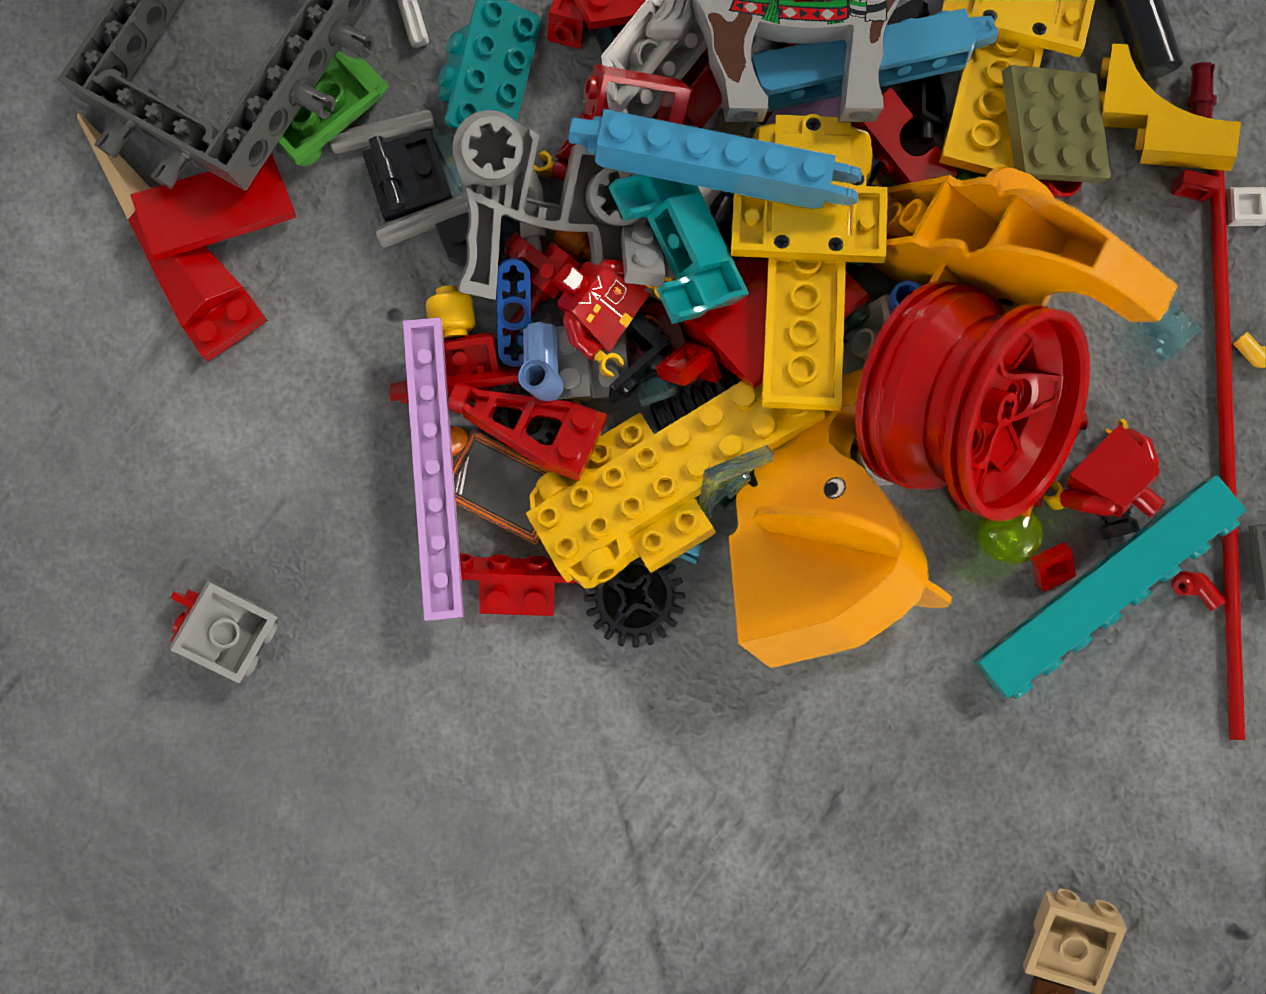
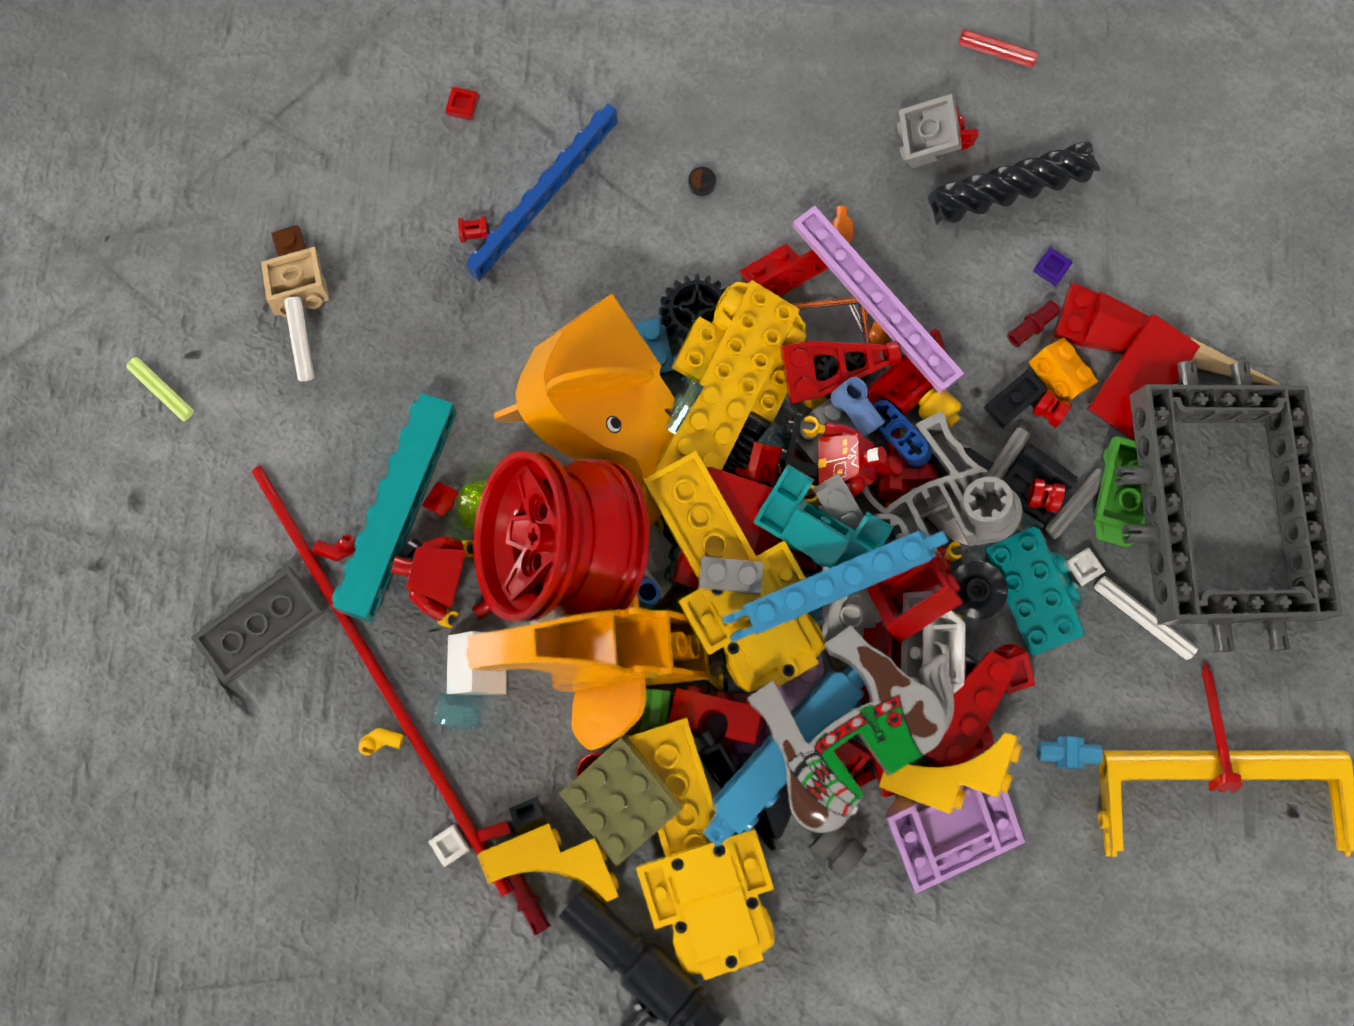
camera: 145 degrees right, 5 degrees down
(64, 691) = (998, 48): none -> axle
(170, 509) = (1008, 182): none -> black piece
(207, 394) = (1052, 266): none -> dark purple tile
(279, 342) = (1033, 323): none -> dark red pin
(288, 271) = (1063, 370): none -> light orange bracket
(332, 239) = (1047, 403): none -> red wheel
(361, 276) = (1015, 398): none -> black plate
(402, 590) = (843, 223): none -> orange cylinder
(412, 147) = (1045, 495): none -> red wheel
(422, 66) = (1084, 567): none -> white tile
(520, 755) = (702, 181): none -> black tile
(547, 93) = (991, 586): none -> black dish
(698, 870) = (535, 199): none -> blue plate
(706, 589) = (656, 339): none -> dark azure plate
(814, 245) = (730, 575): none -> light grey plate
(824, 869) = (473, 229): none -> red bush
(1110, 860) = (299, 338): none -> white axle
(1121, 365) = (470, 681): none -> white slope
(1153, 180) = (527, 816): none -> black plate

